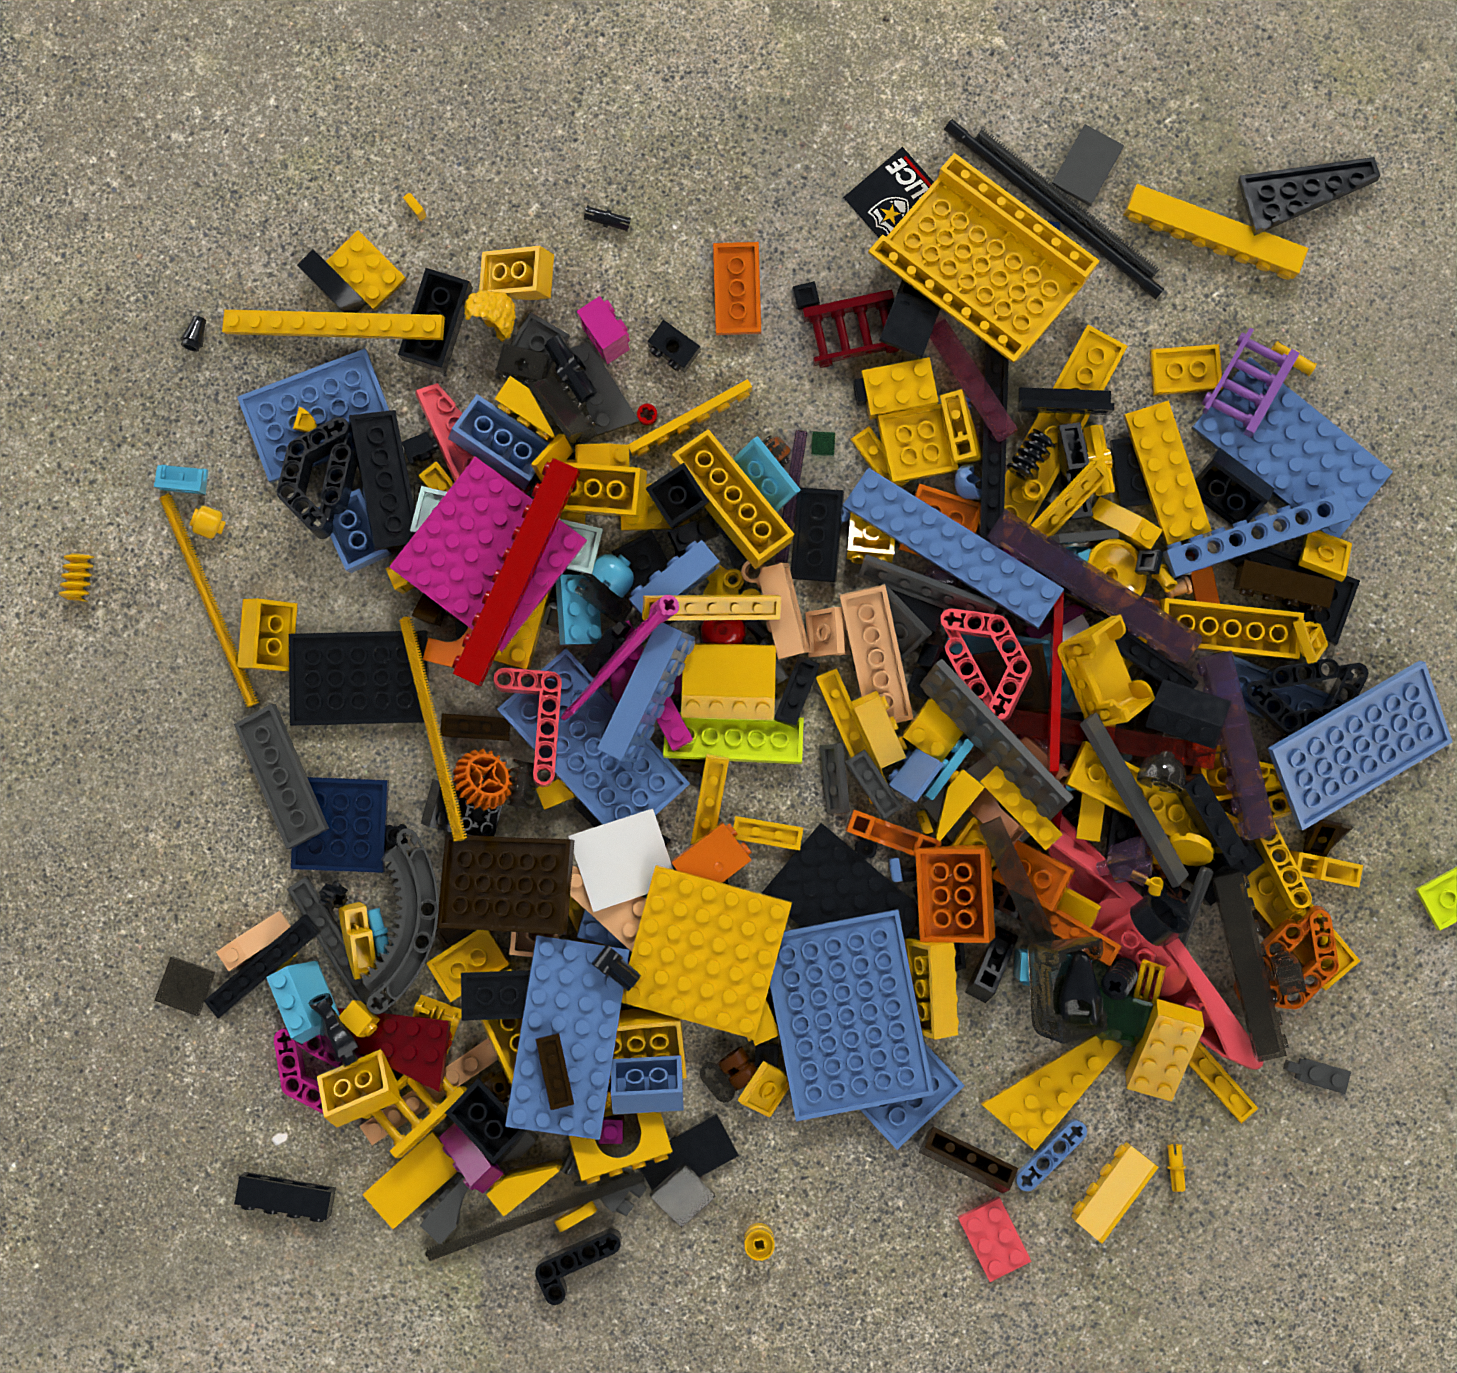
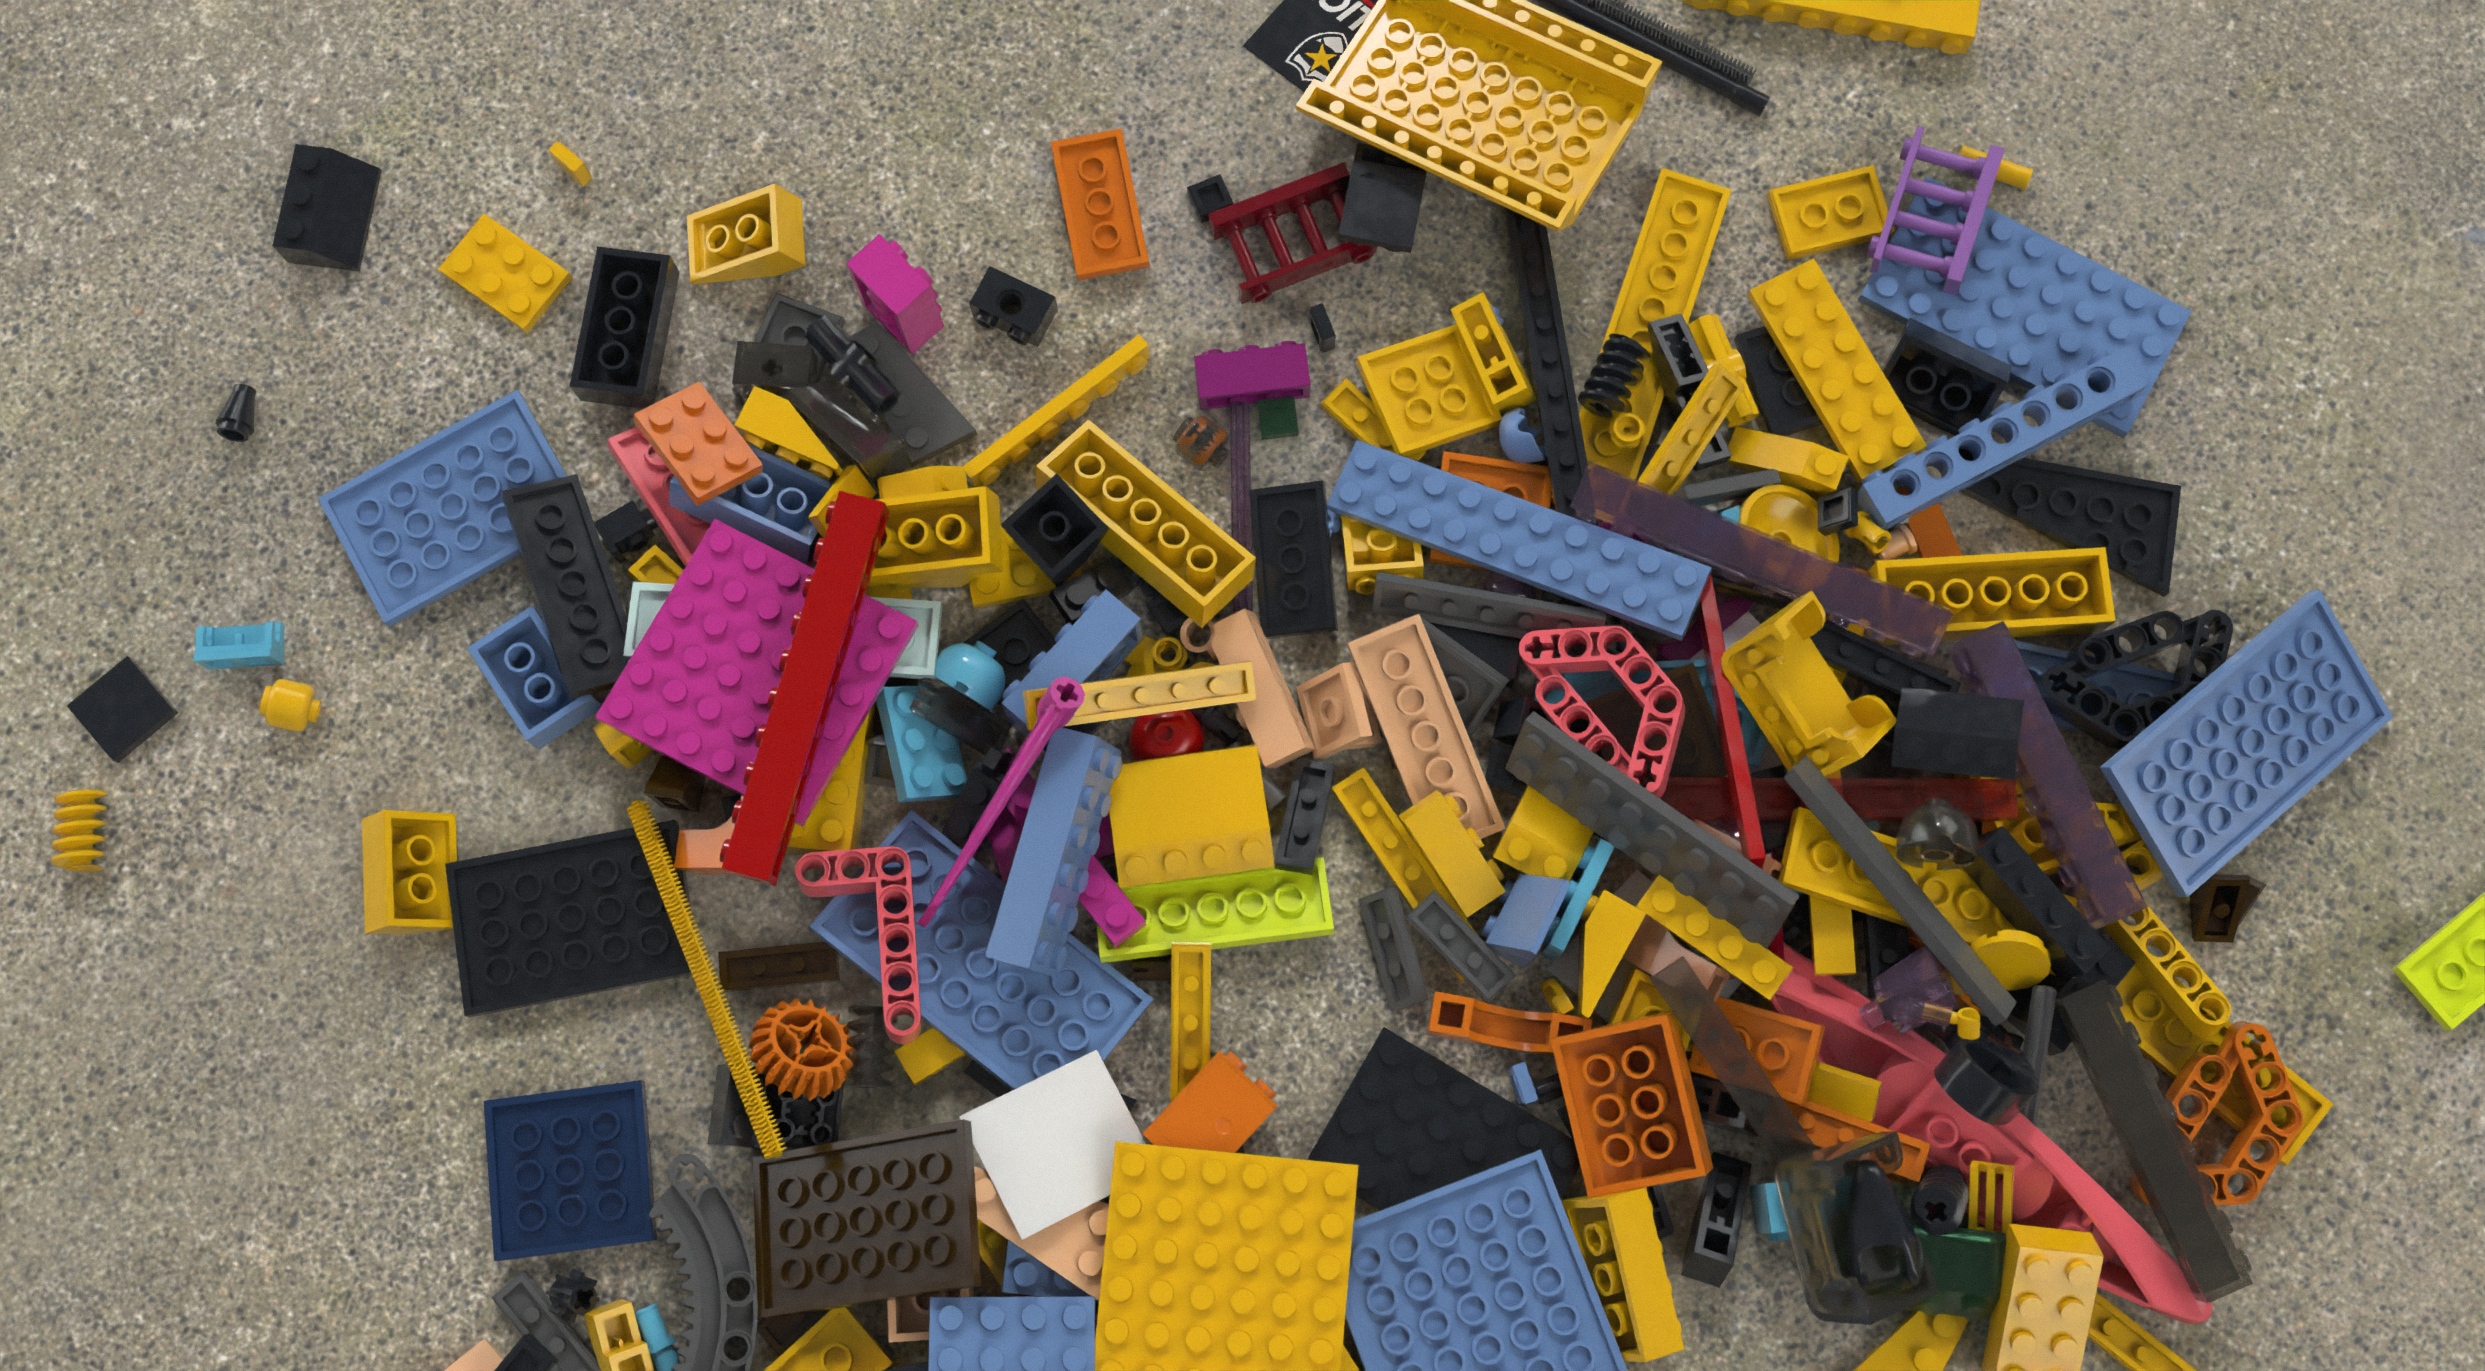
camera: 10 degrees left, 10 degrees down
(107, 506) = (122, 709): none -> black tile
(206, 595) = (305, 832): yellow axle -> none
(262, 211) = (326, 209): none -> black slope
(281, 776) = (459, 1104): dark grey plate -> none
(304, 421) = (433, 519): yellow tile -> none
(331, 283) = (450, 300): black slope -> none
(333, 324) = (461, 358): yellow plate -> none
(337, 448) = (473, 537): black piece -> none
(390, 831) = (658, 1169): black plate -> none
(471, 406) = (698, 443): none -> orange plate
(495, 310) = (716, 295): yellow hair -> none
(607, 218) = (877, 133): black pin -> none
(612, 965) = (1067, 1325): black piece -> none
(644, 421) = (991, 408): red bush -> none
(766, 473) = (1196, 473): medium azure plate -> none
(768, 833) = (1298, 1060): yellow plate -> none
(812, 414) = (1252, 374): none -> magenta brick
(872, 846) = (1476, 1053): black plate -> none
(899, 387) = (1383, 308): yellow brick -> none
(972, 381) = (1498, 280): clear pink plate -> none
(1064, 401) = (1650, 287): black fence -> none
(1284, 585) = (2062, 511): dark brown brick -> none
(1287, 973) = (2221, 1139): clear smoke brick -> none
(1311, 640) = (2130, 589): yellow wing -> none
(1319, 1074) = (2311, 1313): dark grey hinge -> none
(1325, 555) = (2117, 454): yellow plate -> none
(1328, 869) = (2245, 959): yellow slope -> none

